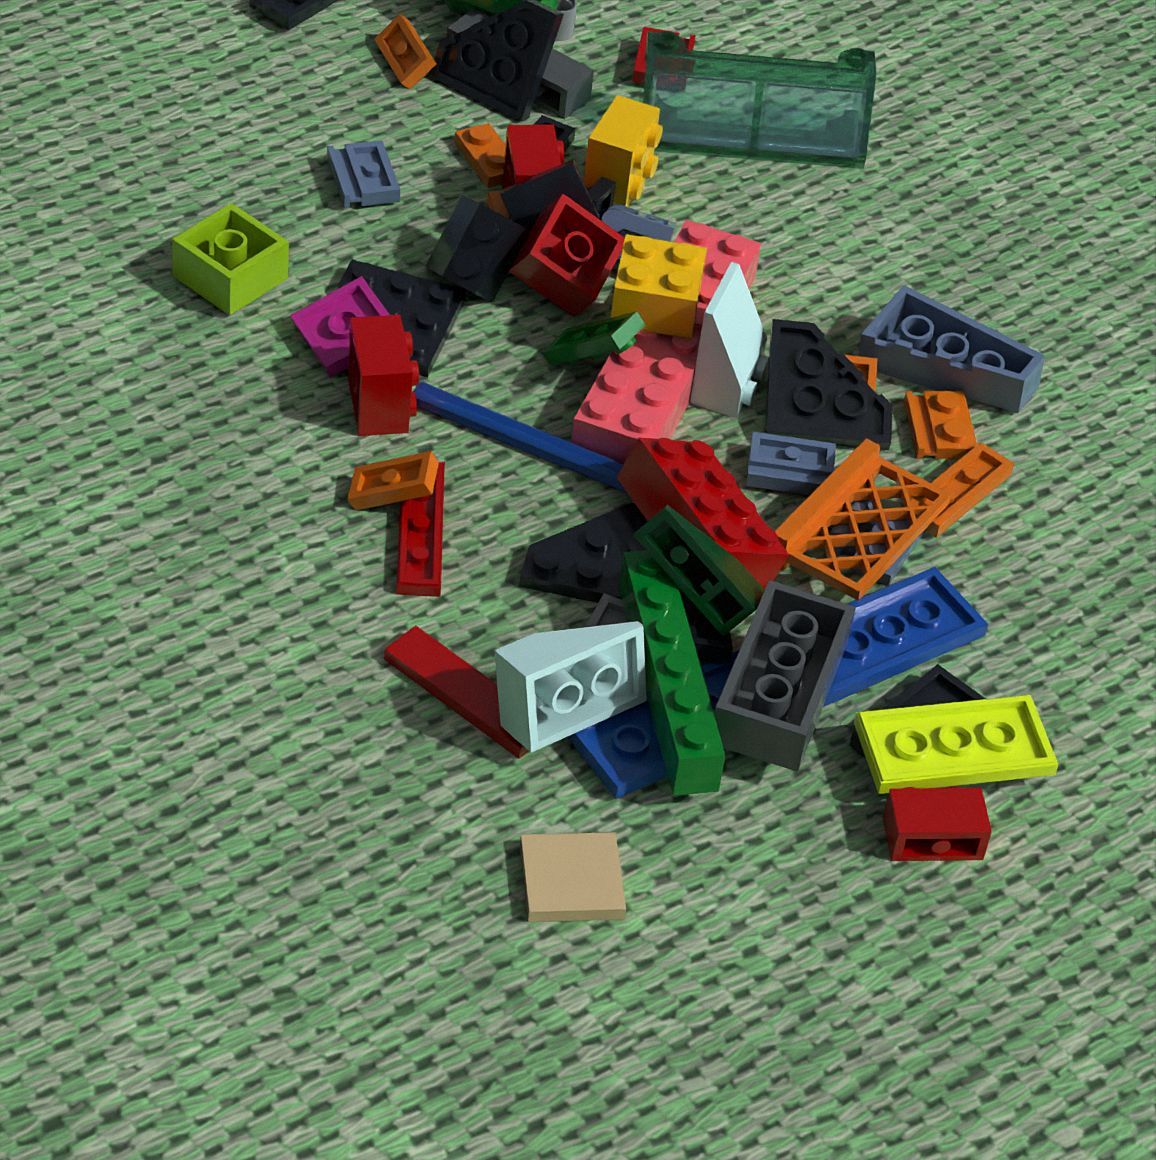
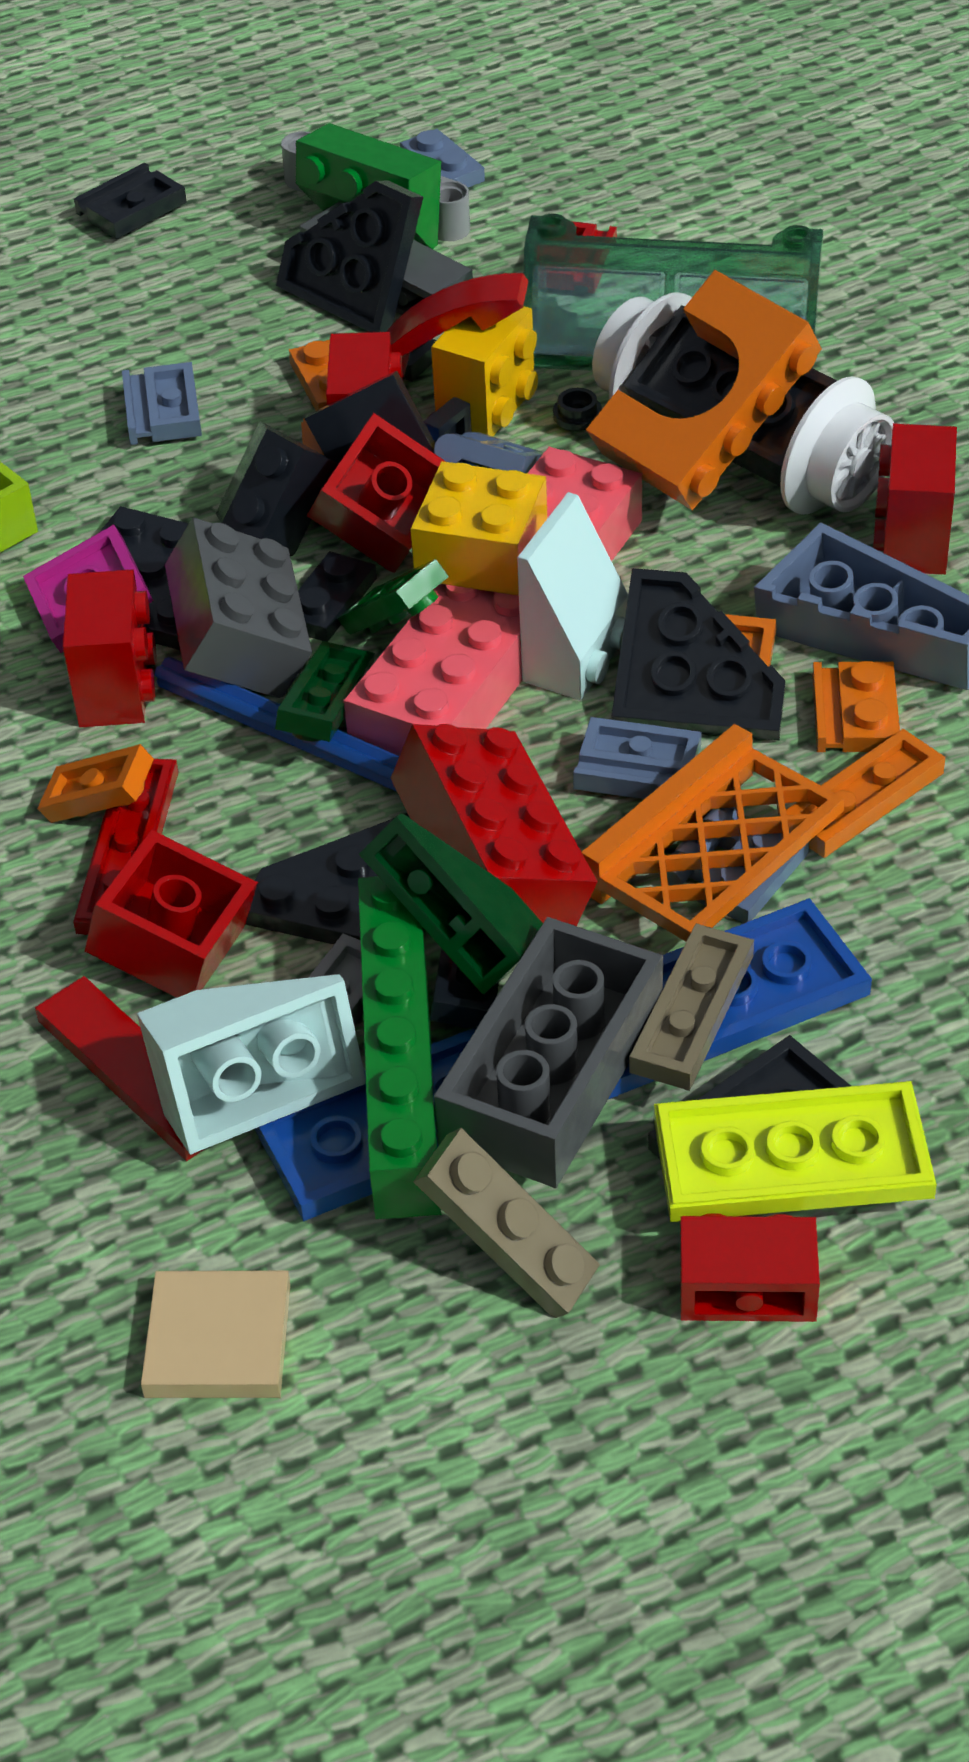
camera: 15 degrees right, 0 degrees up
(405, 51) = (248, 258): orange plate -> none
(473, 344) = (237, 608): none -> dark grey brick
(479, 581) = (170, 916): none -> red brick
(529, 334) = (332, 590): none -> black plate
(552, 411) = (317, 698): none -> dark green plate
(628, 100) = (483, 298): none -> red slope
(692, 187) = (576, 409): none -> black plate
(772, 795) = (507, 1223): none -> dark tan plate
(798, 229) = (691, 453): none -> orange arch
(828, 187) = (814, 447): none -> brick
(870, 644) = (691, 1007): none -> dark tan plate
(968, 263) = (916, 496): none -> red brick

